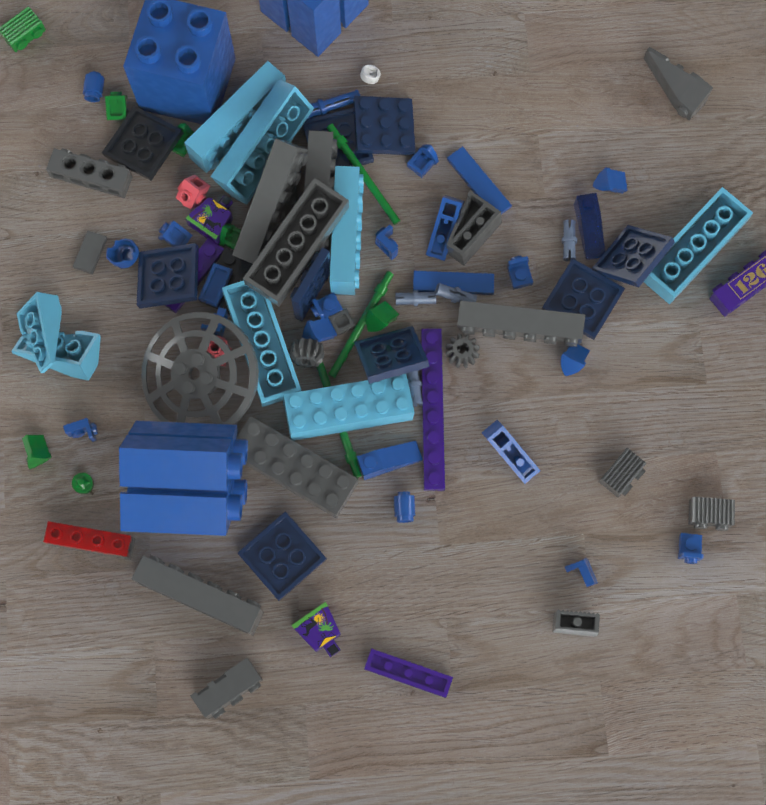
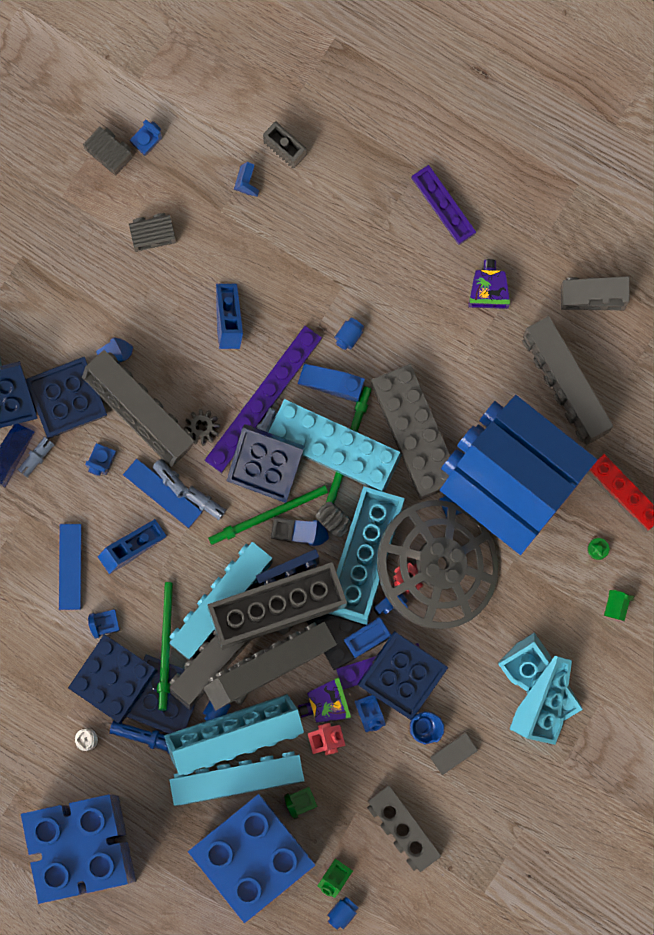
camera: 145 degrees left, 5 degrees up
(78, 429) = (571, 596): blue bracket -> none
(142, 143) = (337, 822): black plate -> none
(229, 235) = (318, 672): green tile -> none
(282, 556) = (476, 368): dark blue plate -> none
(326, 306) = (285, 550): blue bracket -> none
(380, 317) = (247, 506): green tile -> none
(387, 245) = (192, 565): blue bracket -> none
(473, 228) = (110, 525): dark grey wedge -> none

